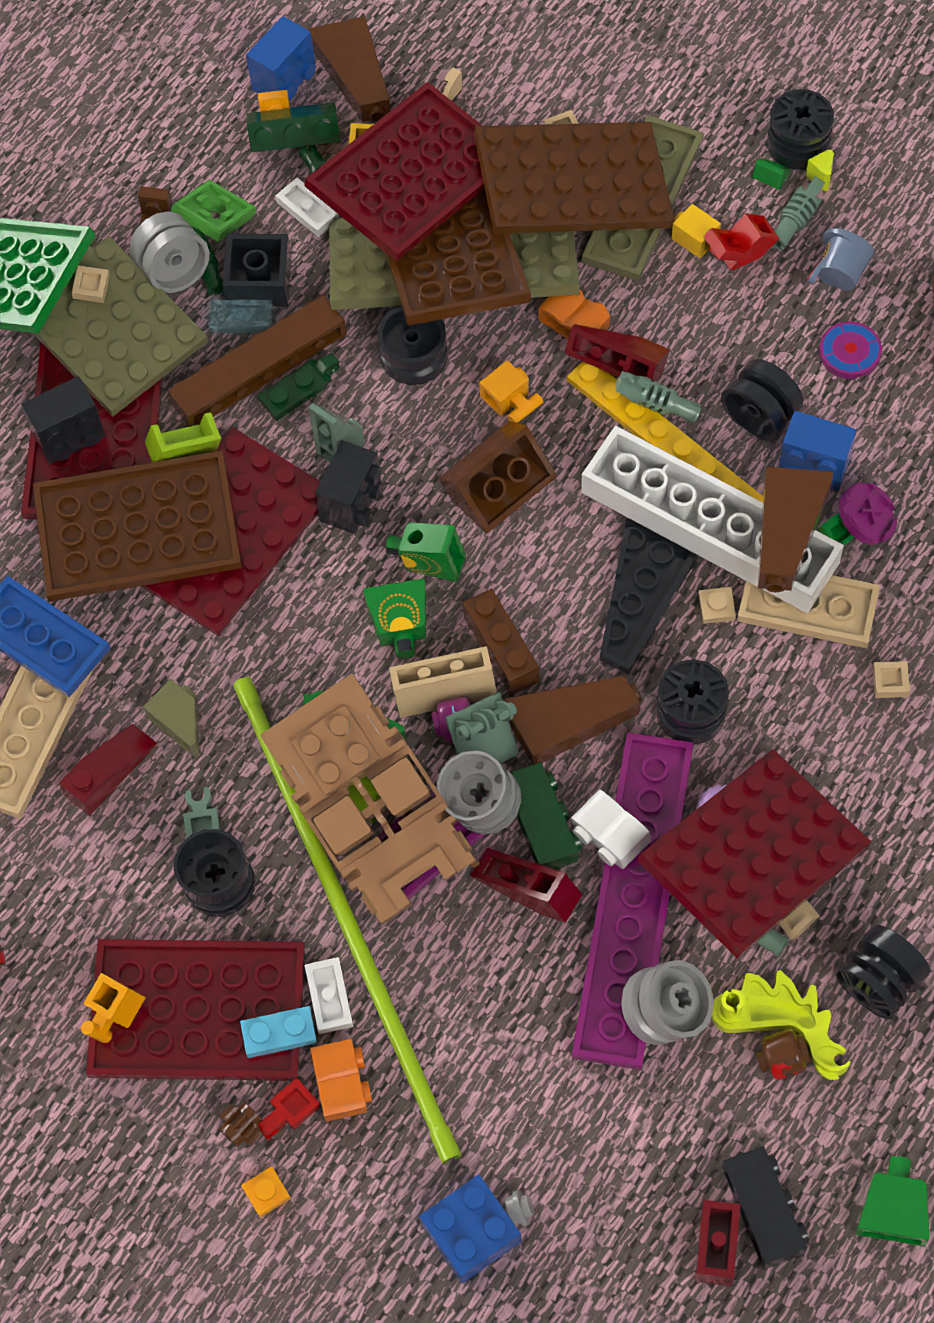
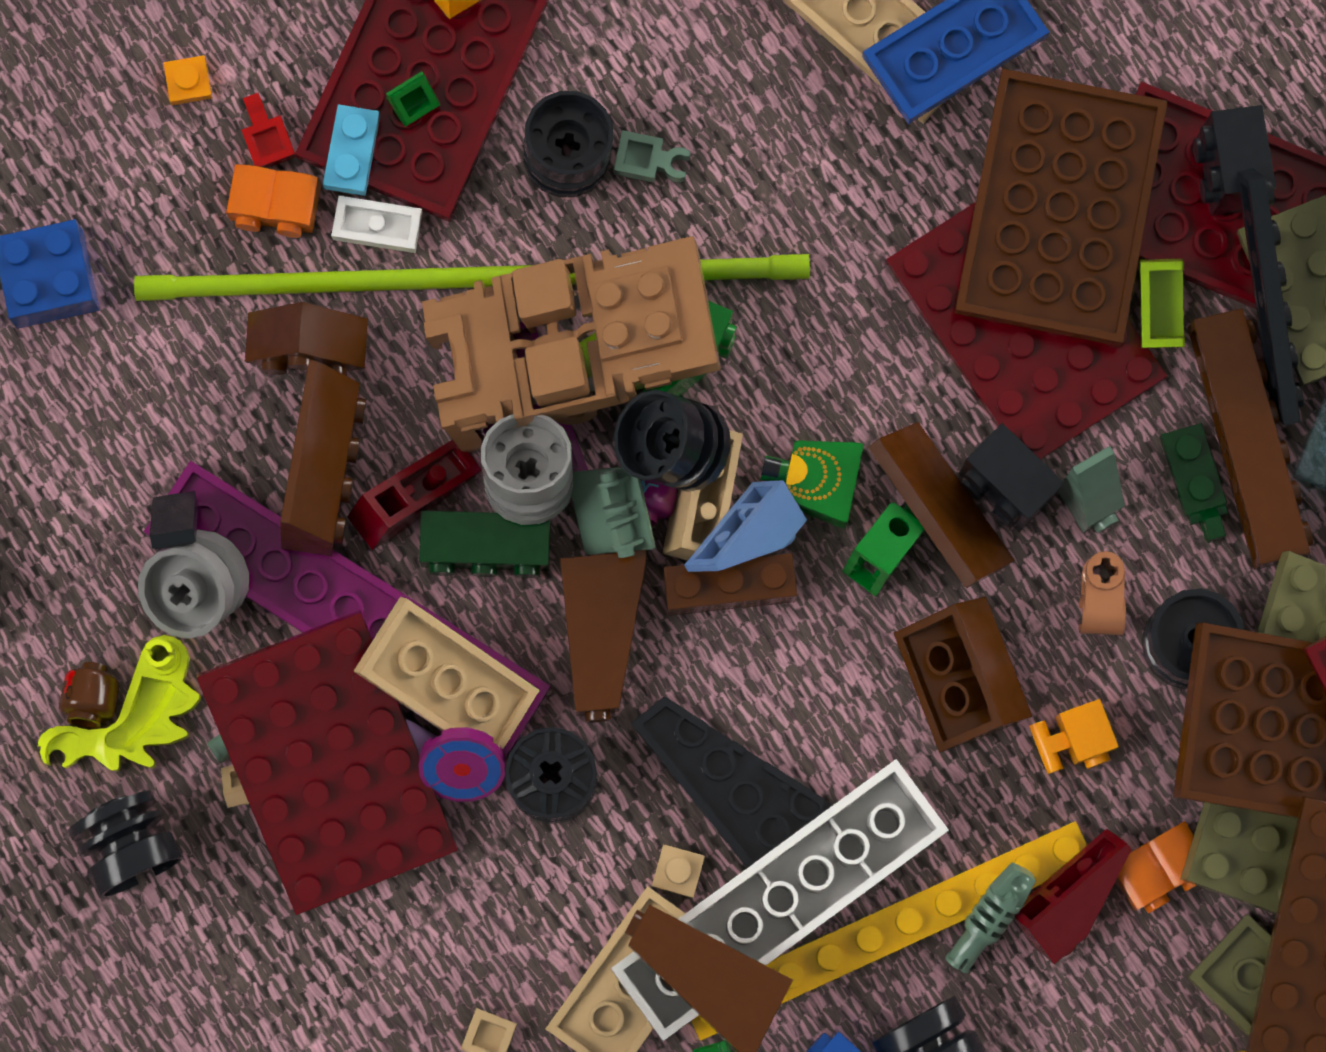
camera: 105 degrees right, 15 degrees up
(105, 768) = (759, 74): dark red slope -> none
(151, 365) = (1267, 279): none -> black plate
(176, 714) = (791, 174): olive slope -> none
(219, 1003) = (412, 99): none -> green slope
(240, 1124) = (267, 75): reddish brown gear -> none
(385, 526) = (941, 504): none -> reddish brown tile
(405, 411) = (1103, 602): none -> nougat piece
(429, 709) = (672, 440): none -> black wheel
(443, 1000) = (305, 332): none -> reddish brown brick
(460, 632) = (756, 525): none -> medium blue slope
(519, 1208) = (48, 336): light grey plate -> none
(534, 952) = (320, 461): none -> reddish brown slope
(610, 829) = (439, 594): white brick -> none
(626, 1031) = (174, 520): none -> black tile
(660, 785) = (444, 675): none -> tan plate
(715, 756) = (462, 764): none -> magenta tile

